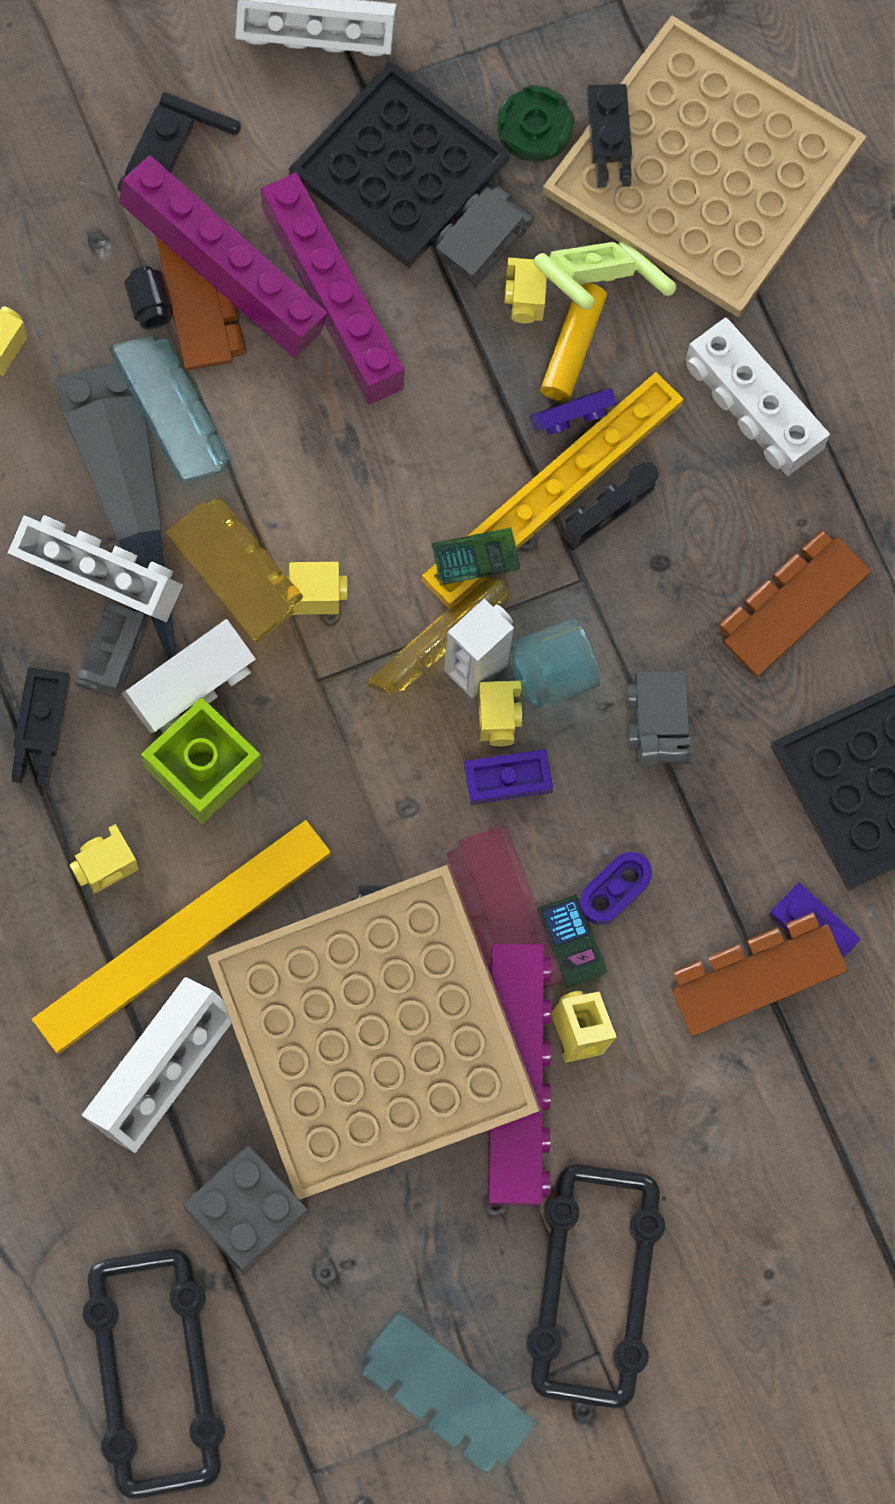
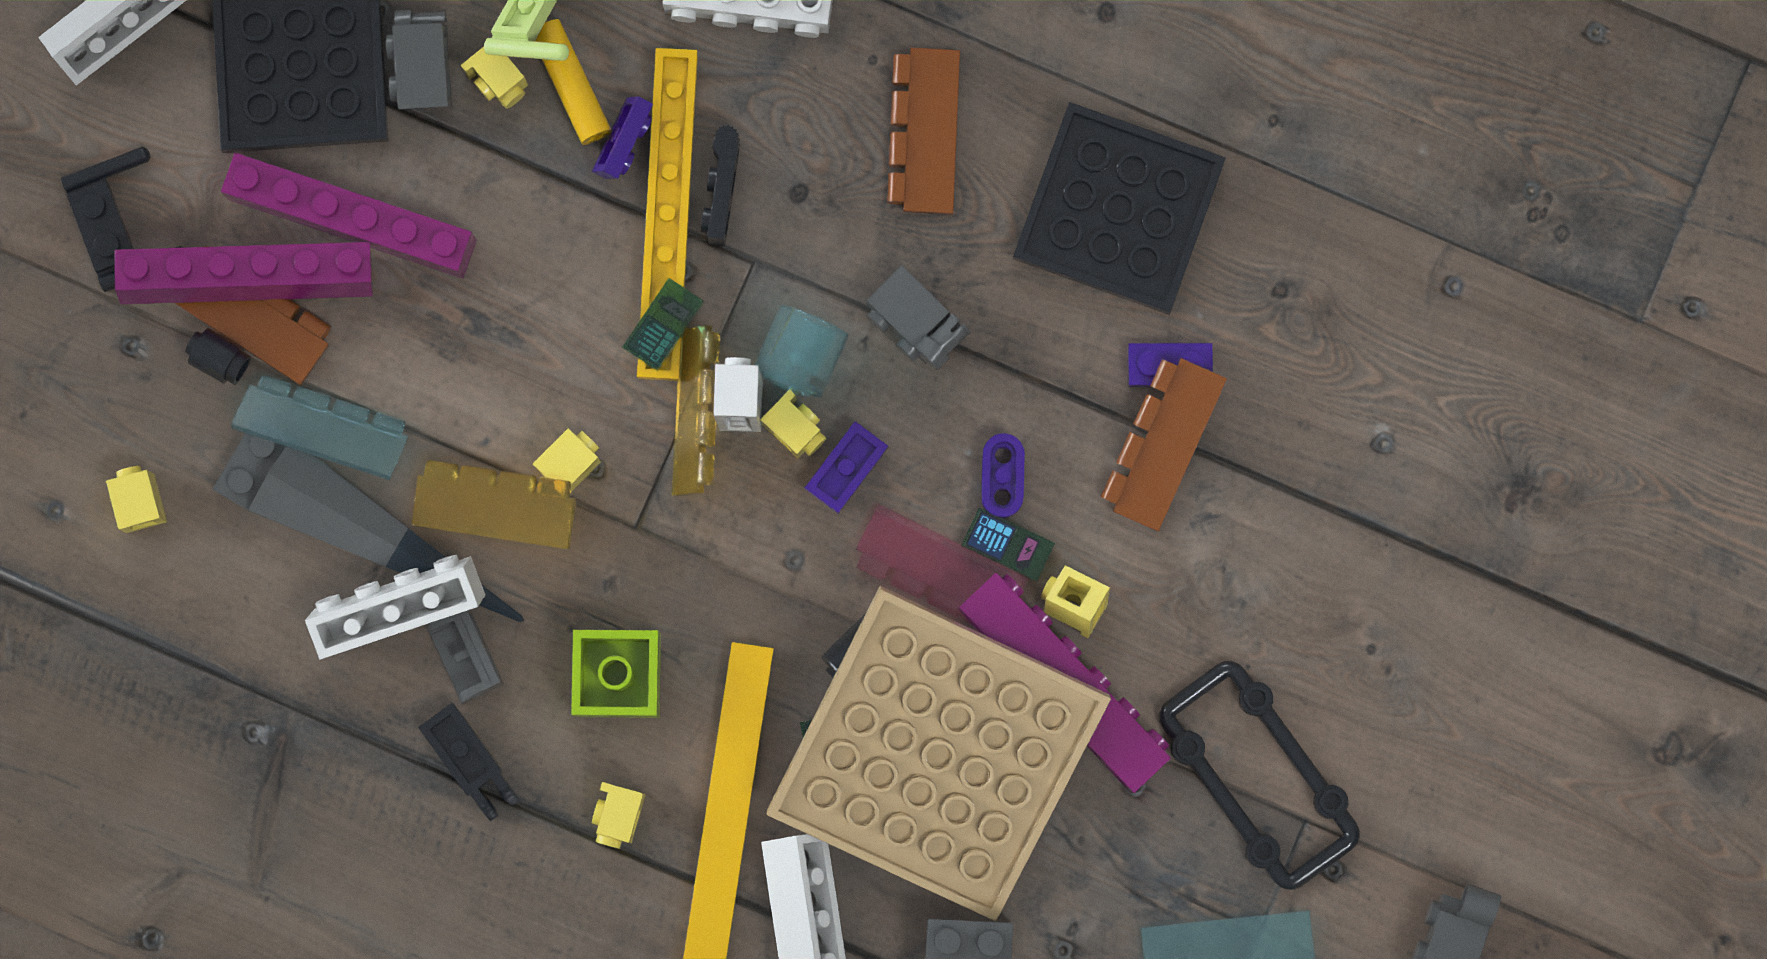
camera: 35 degrees left, 10 degrees up
(189, 676) = (544, 620): white brick -> none

